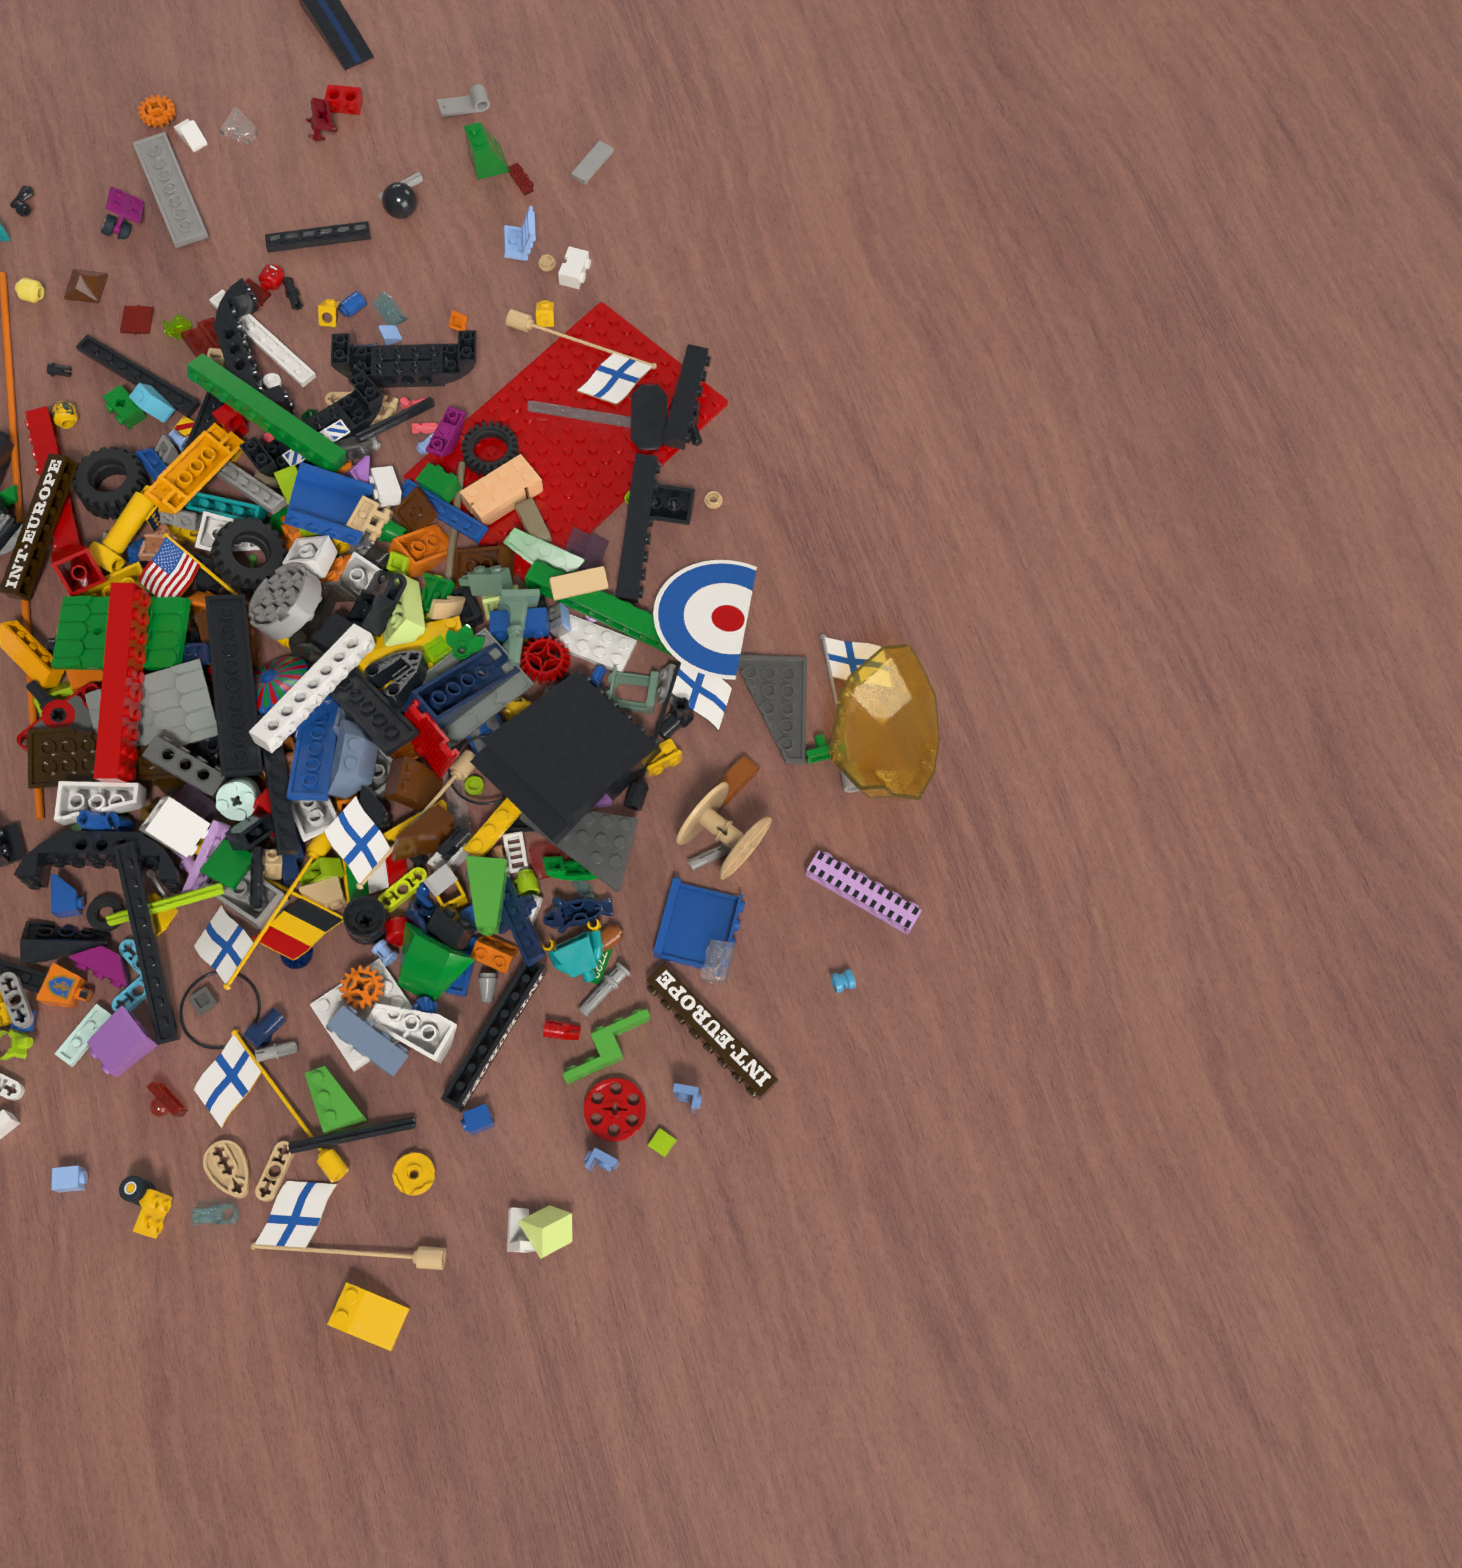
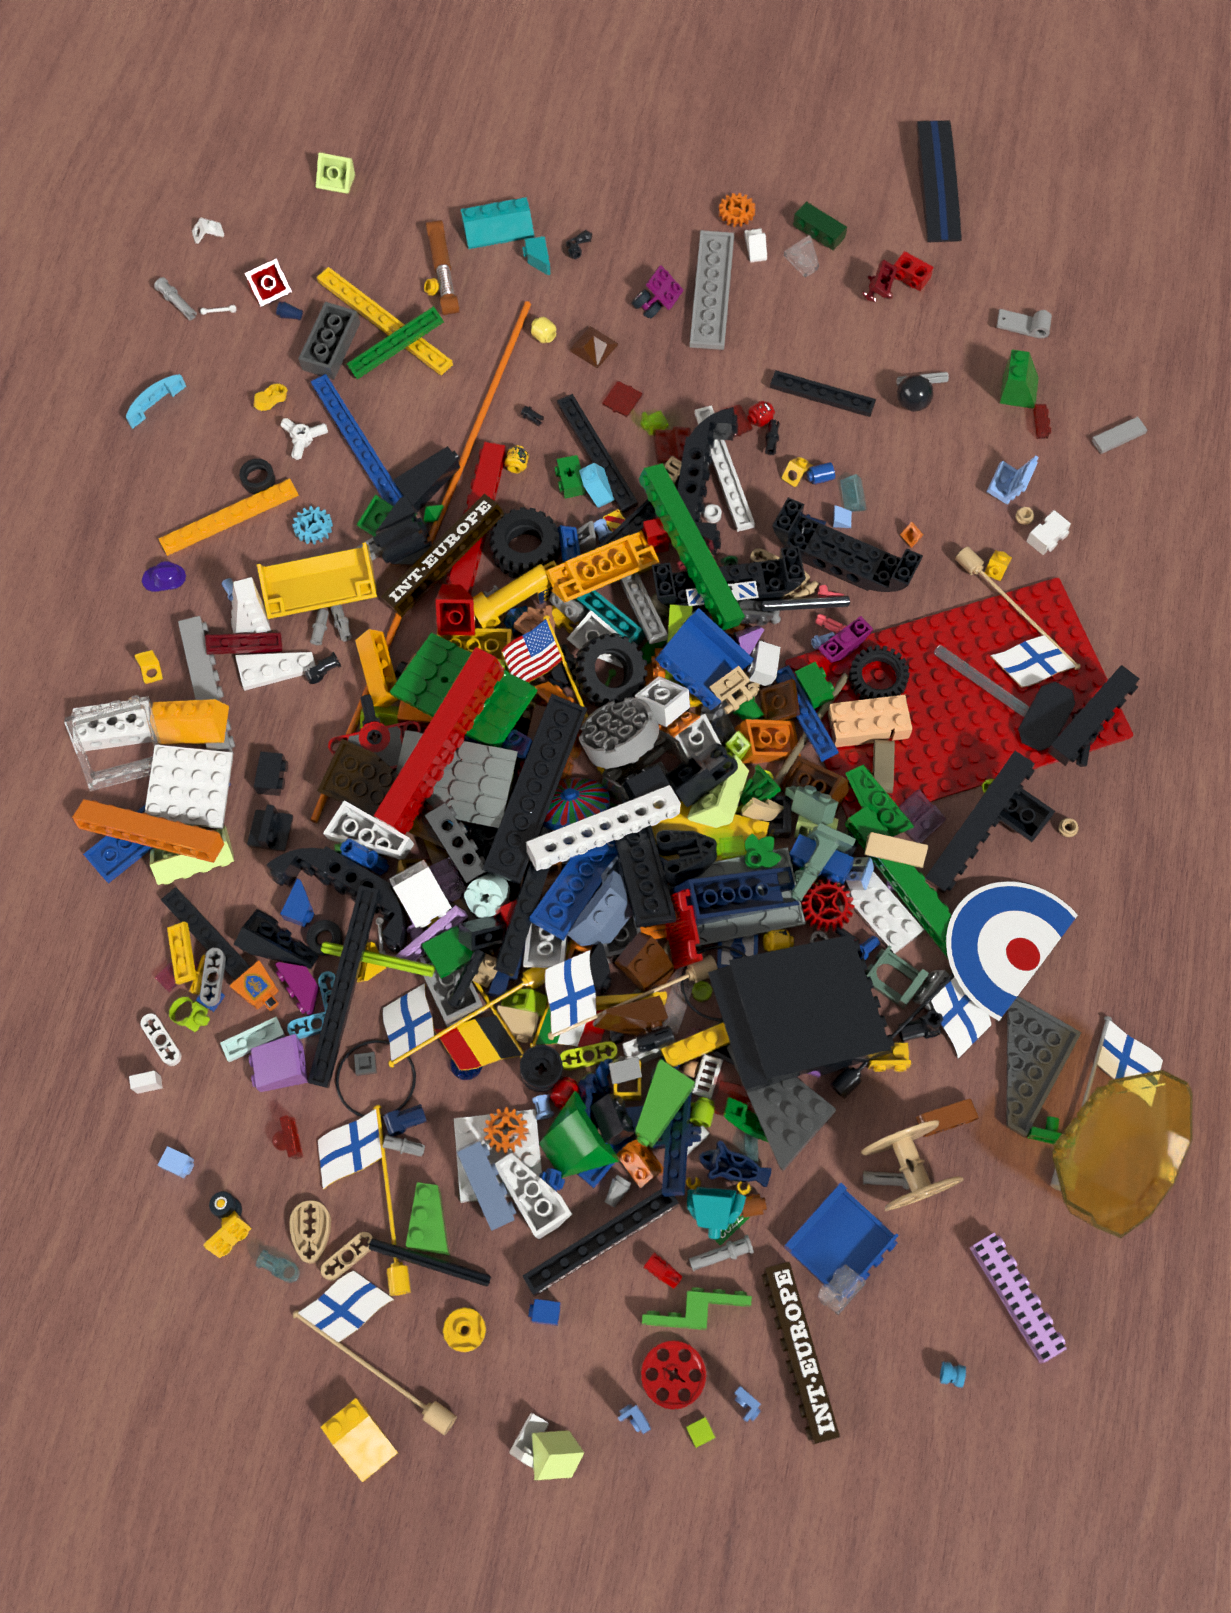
camera: 35 degrees right, 0 degrees up
(240, 94) = (819, 226): none -> dark green brick

